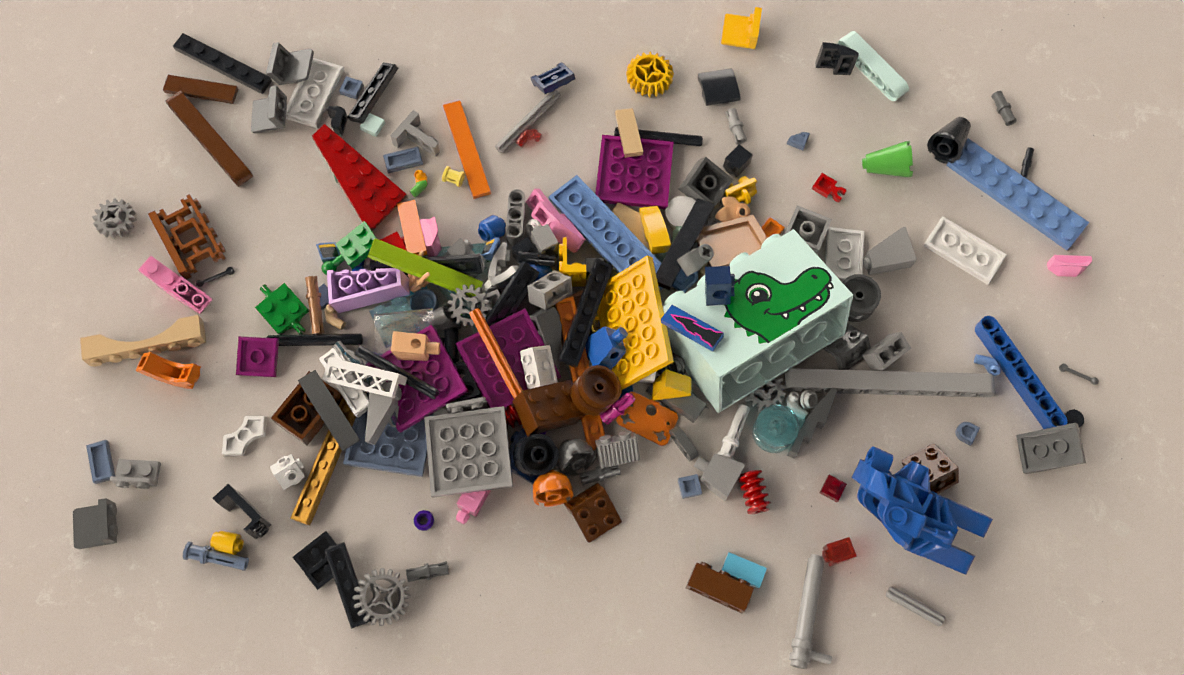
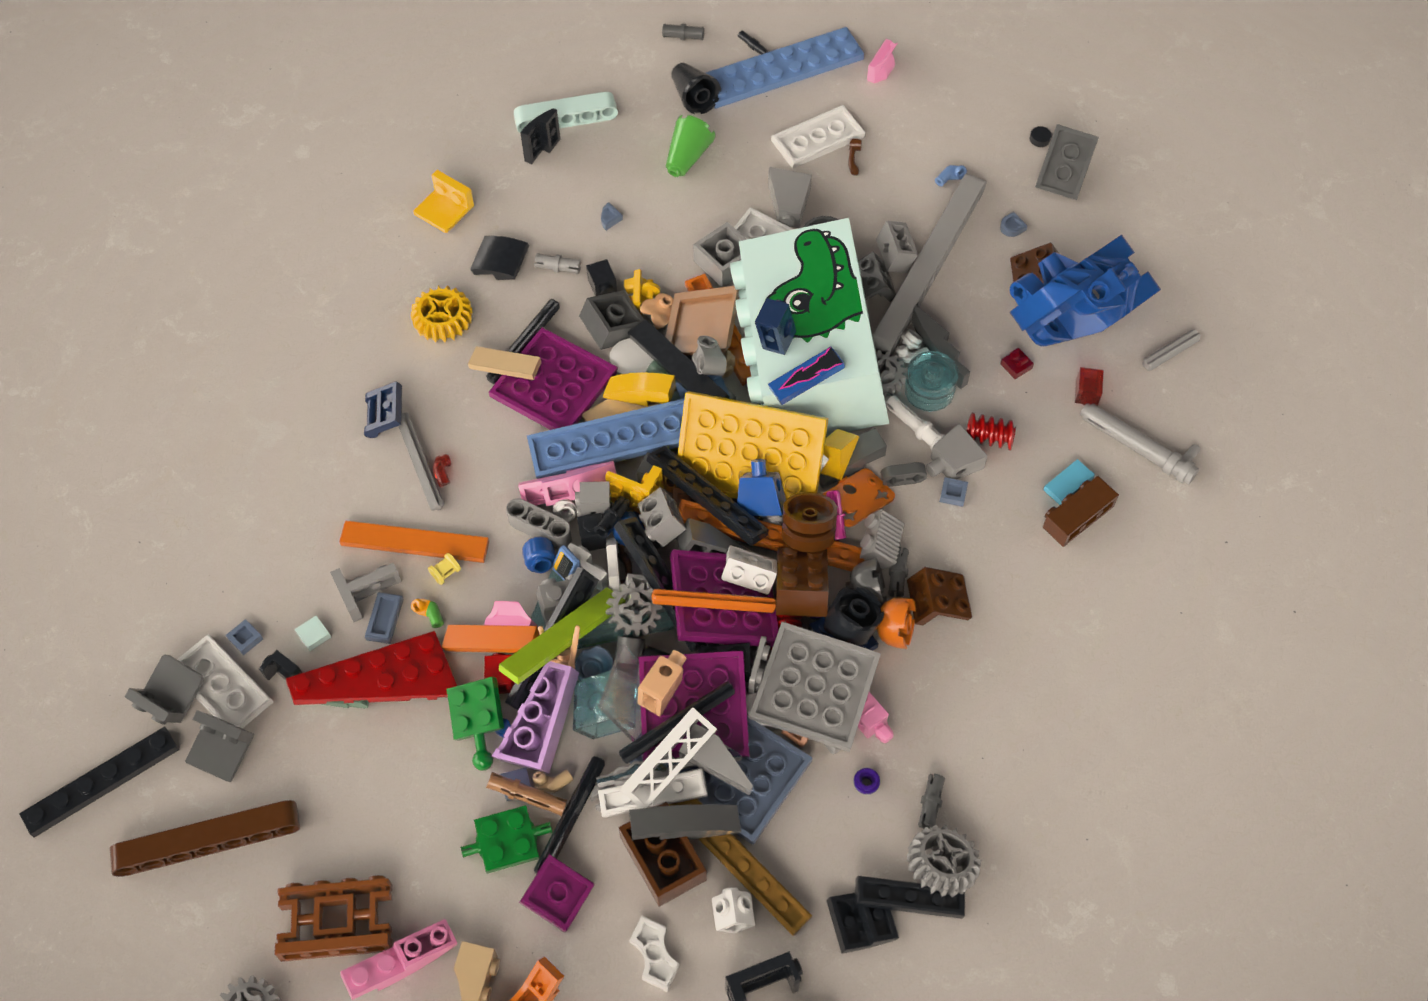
camera: 60 degrees left, 10 degrees down
(201, 89) = (120, 823): reddish brown tile -> none
(229, 270) = (413, 886): black hinge -> none
(328, 251) = (459, 753): slope -> none
(372, 92) = (269, 613): black tile -> none
(826, 185) = (681, 216): red plate -> none
(971, 279) = (855, 145): none -> reddish brown piece
(1019, 364) = (975, 153): blue beam -> none
(1063, 367) = (984, 118): dark grey hinge -> none

